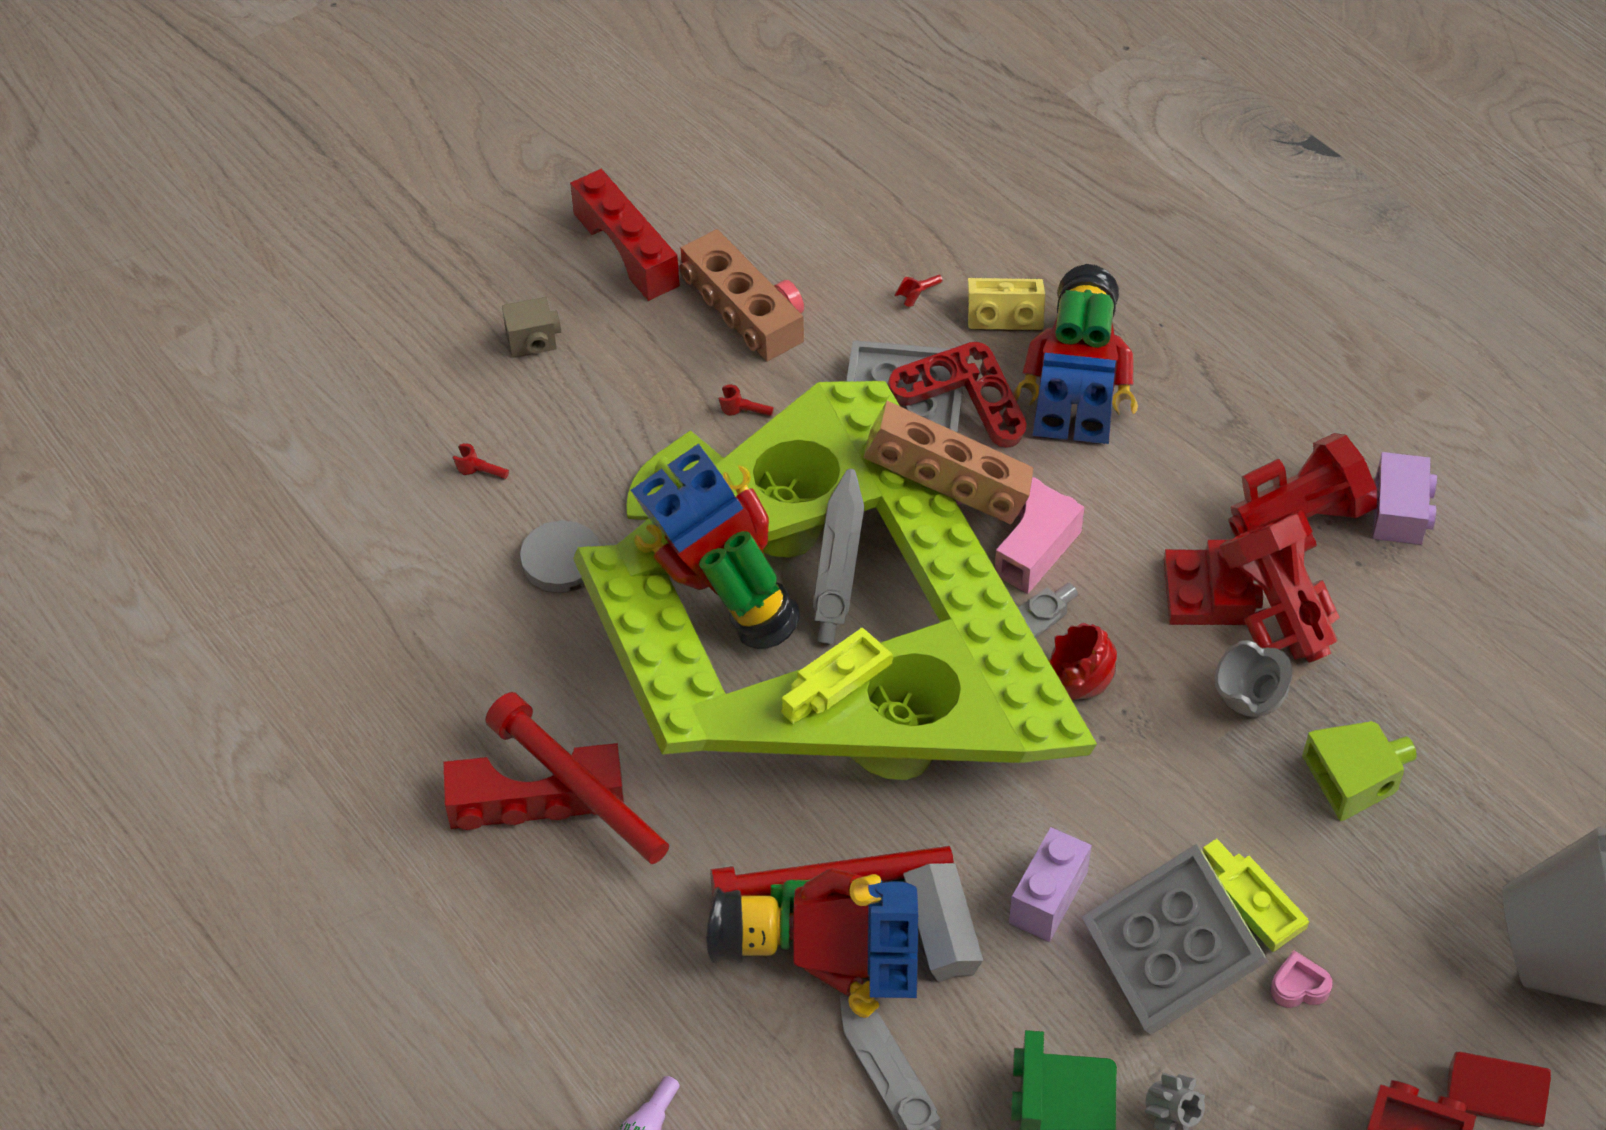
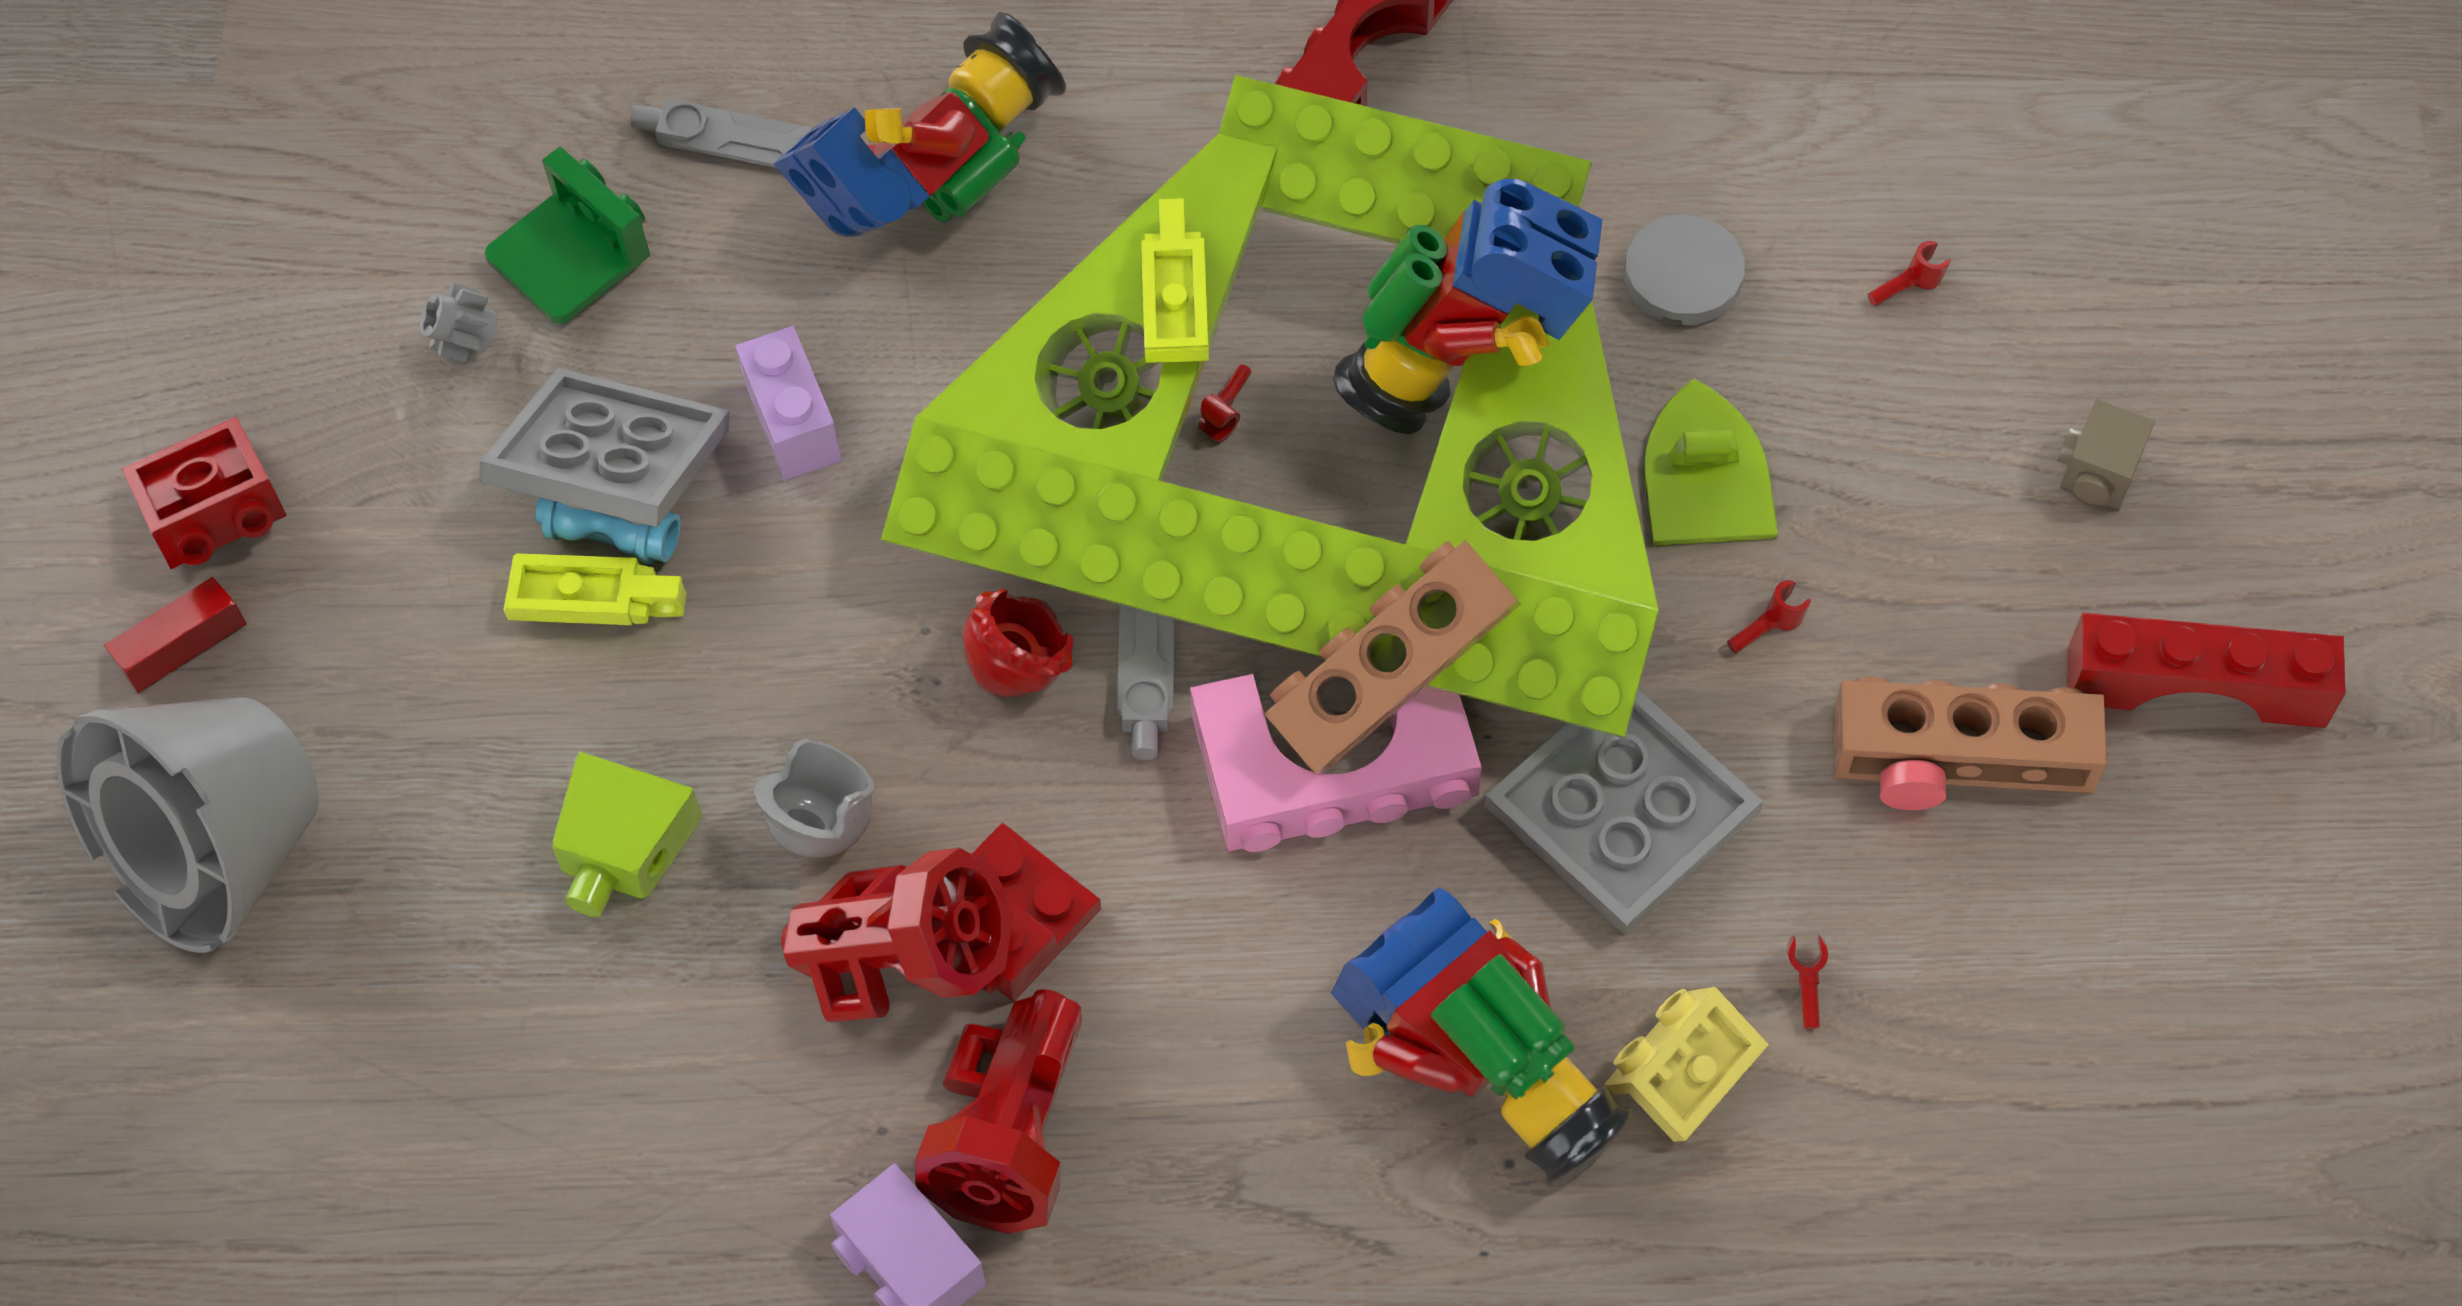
camera: 130 degrees right, 10 degrees up
(511, 718) = (1447, 34): red piece -> none
(838, 556) = (1379, 471): light grey piece -> none
(887, 866) = (1073, 127): red piece -> none
(945, 921) = (855, 286): light grey piece -> none
(965, 375) = (1572, 865): red beam -> none
(1300, 982) = (463, 563): bright pink tile -> none

